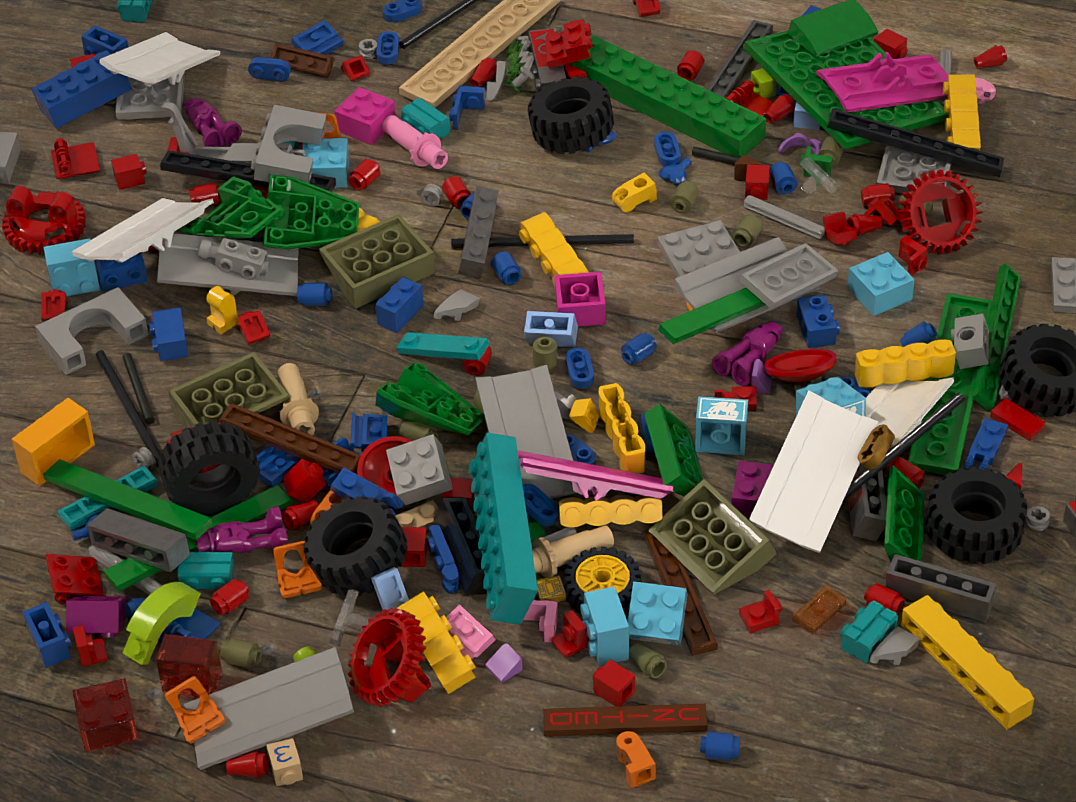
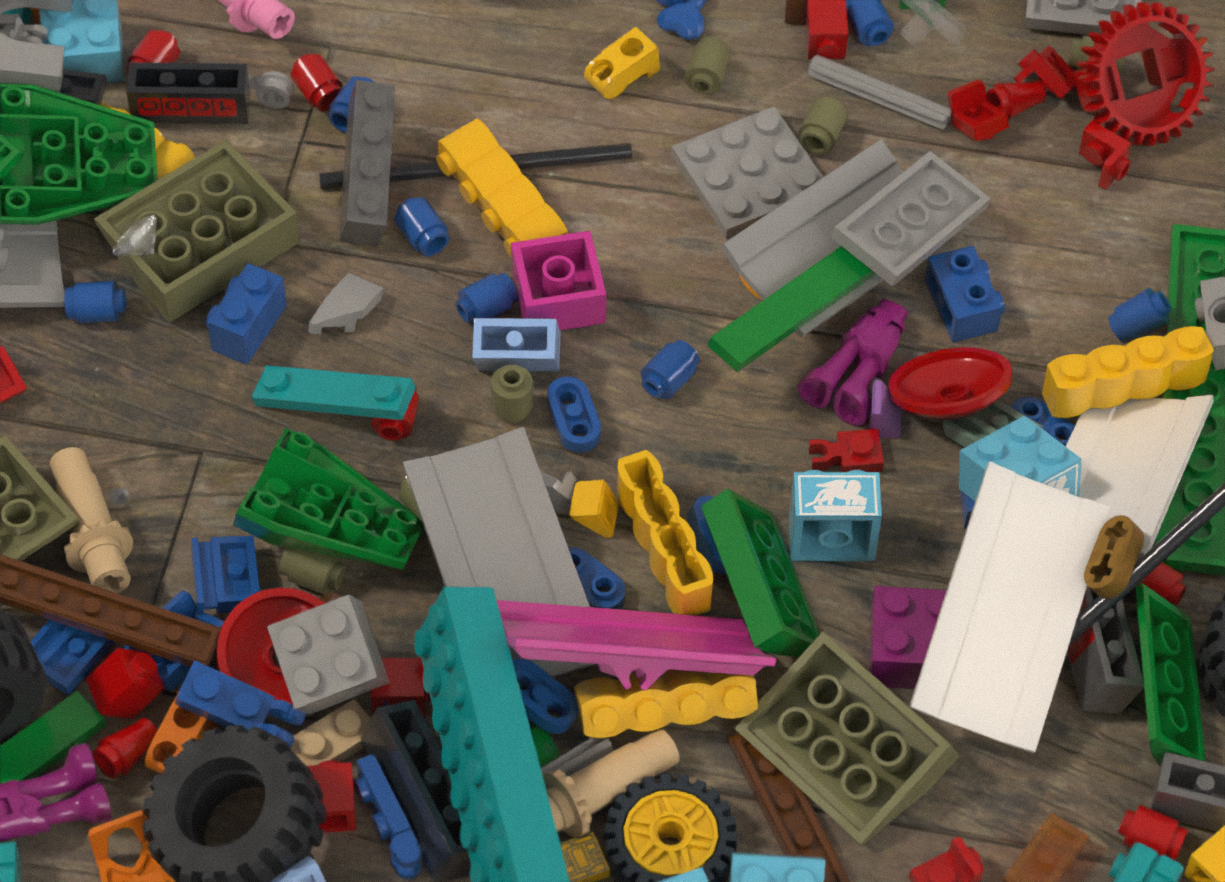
camera: 10 degrees left, 10 degrees up
(342, 259) = (138, 238): none -> clear slope
(383, 191) = (189, 92): none -> black brick
(540, 303) = (486, 297): none -> blue brick
(878, 190) = (1028, 36): red brick -> none
(880, 284) = (1060, 214): medium azure brick -> none

